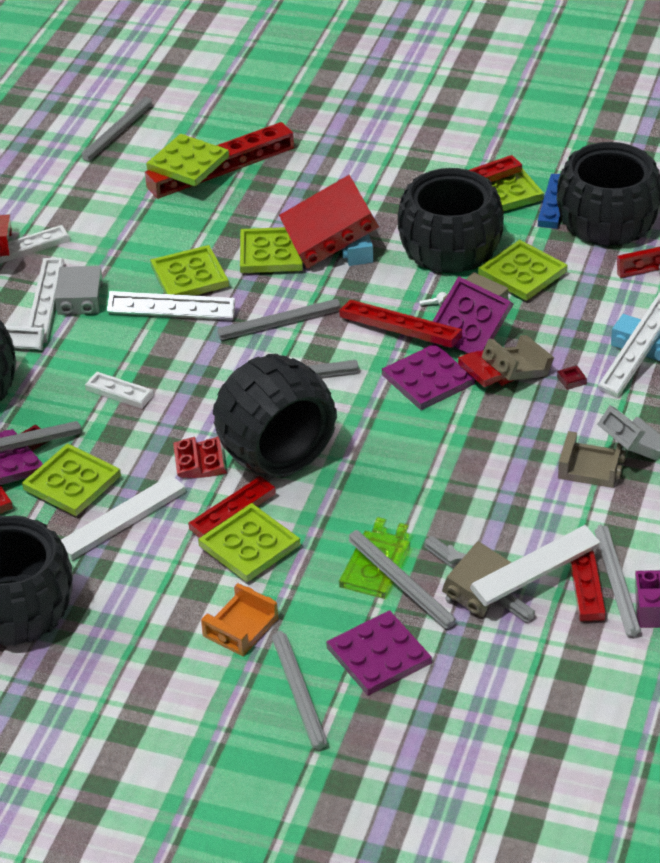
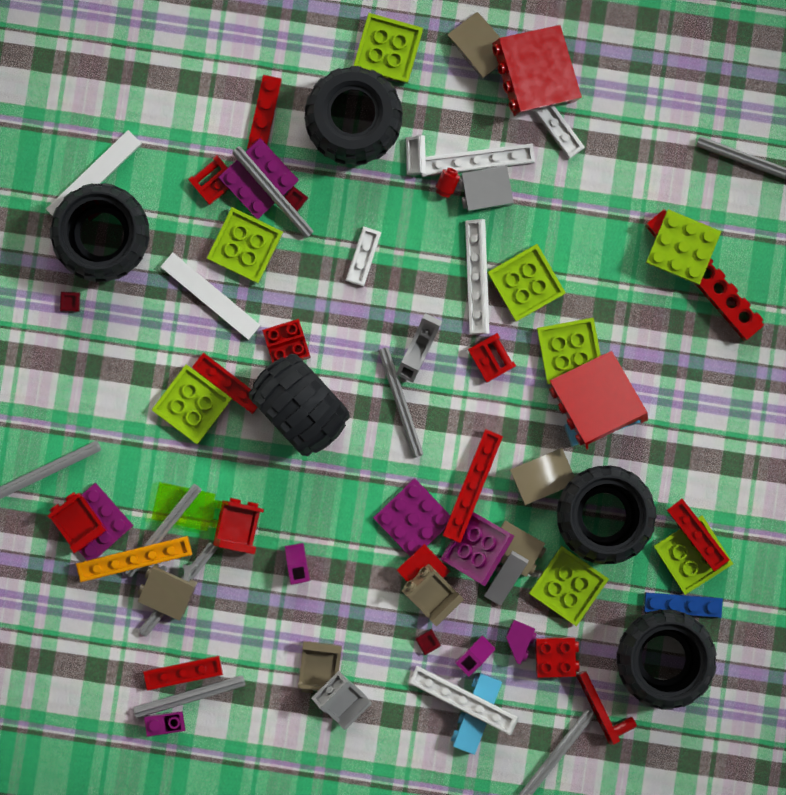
camera: 80 degrees right, 45 degrees up
(60, 314) = (447, 182): none -> red brick
(85, 647) = (70, 301): none -> dark red tile
(227, 346) = (419, 348): none -> light grey arch
(241, 620) = (108, 413): orange panel -> none
(263, 303) = (486, 361): none -> red plate
(278, 319) = (473, 376): light grey axle -> none
(376, 652) = (77, 521): none -> red panel
(402, 279) = (542, 476): none -> dark tan slope
(407, 511) = (237, 526): none -> red panel
(432, 607) = (134, 558): none -> light orange tile
(438, 300) = (517, 518): white hand -> none
(465, 463) = (297, 563): none -> magenta slope
(519, 314) = (506, 578): none -> light grey tile
(534, 565) = (180, 634): white tile -> none
(578, 306) = (518, 638): none -> magenta slope
(595, 338) = (475, 656): none -> magenta slope
(599, 279) = (556, 657): none -> red brick

